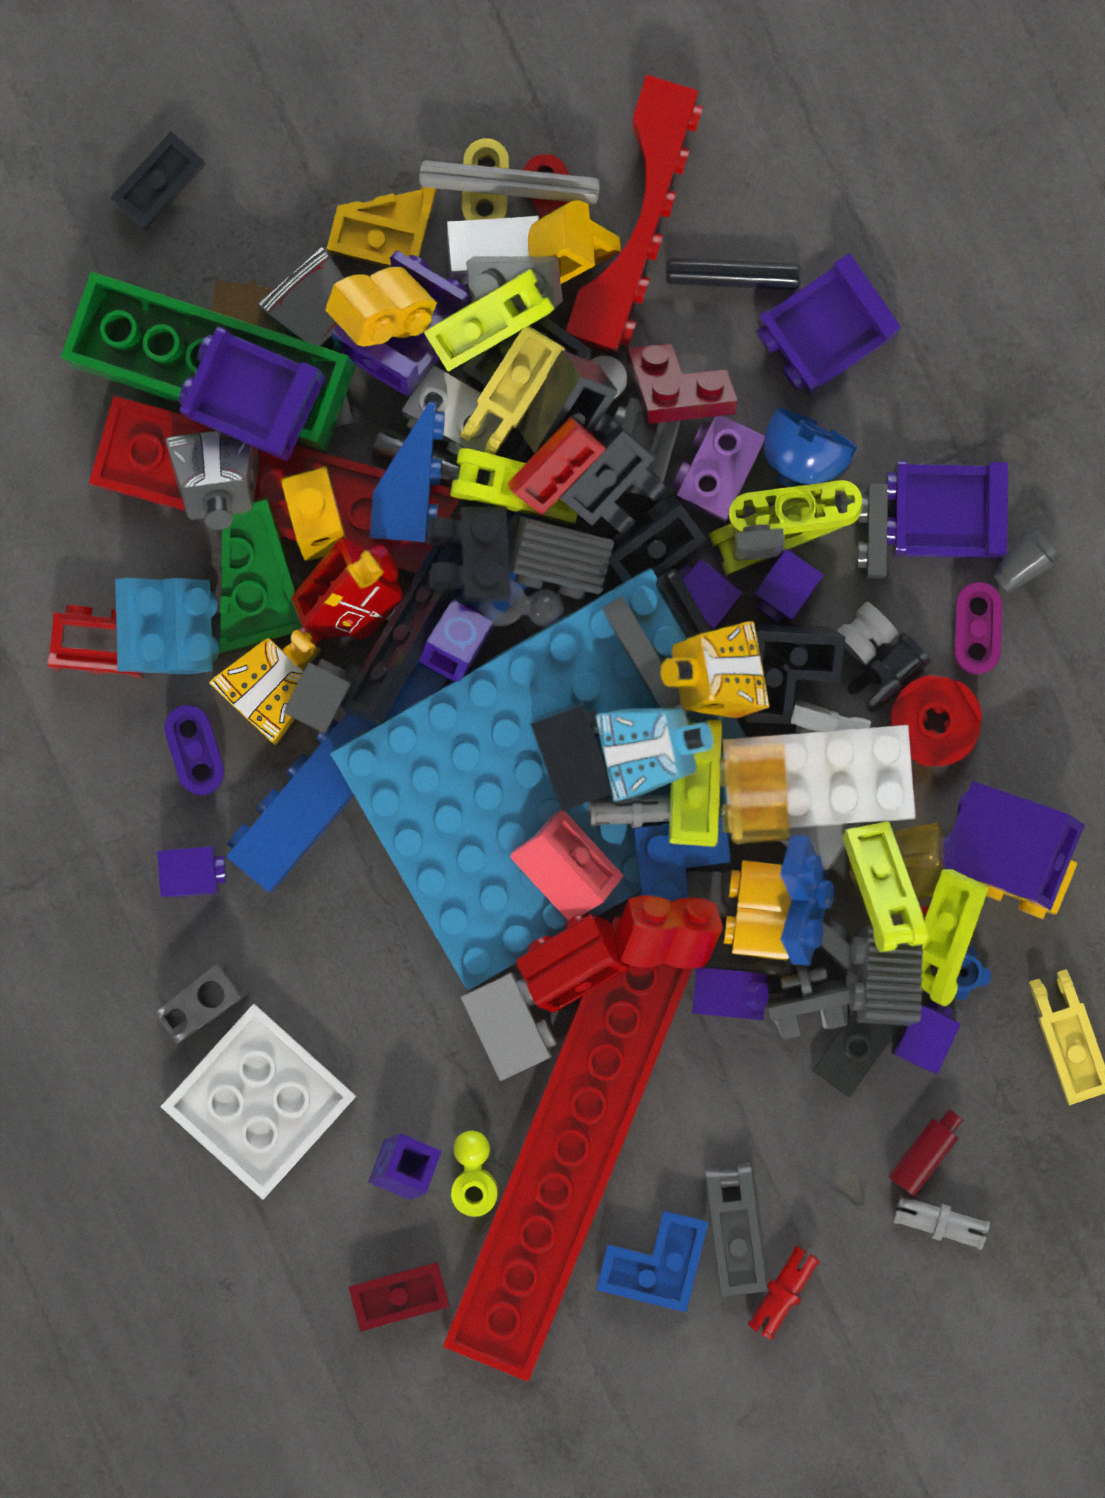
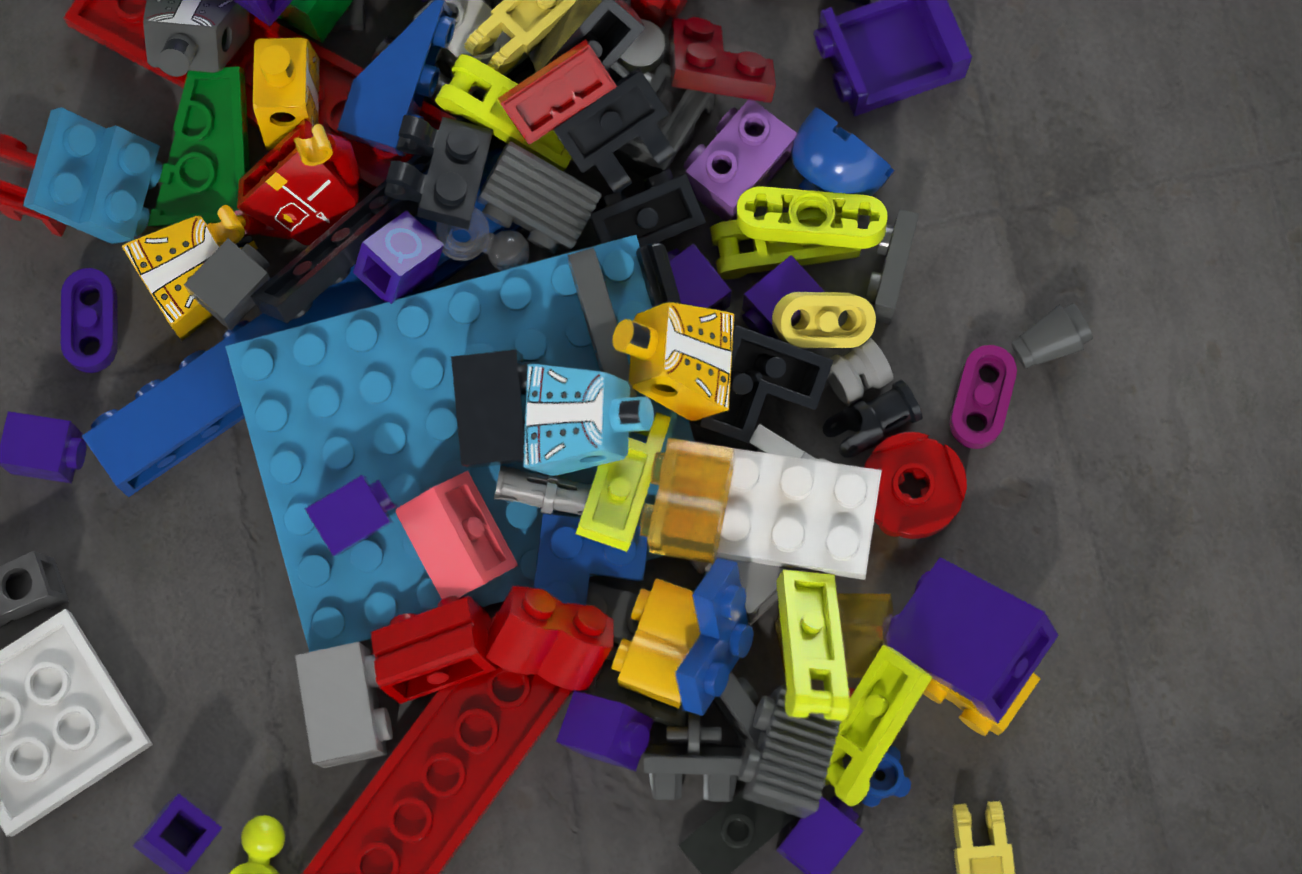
camera: 10 degrees right, 10 degrees down
(477, 870) = (351, 514): none -> dark purple brick
(758, 543) = (760, 235): dark grey plate -> none
(824, 601) = (820, 317): none -> light yellow plate
(948, 510) = (979, 266): dark purple panel -> none

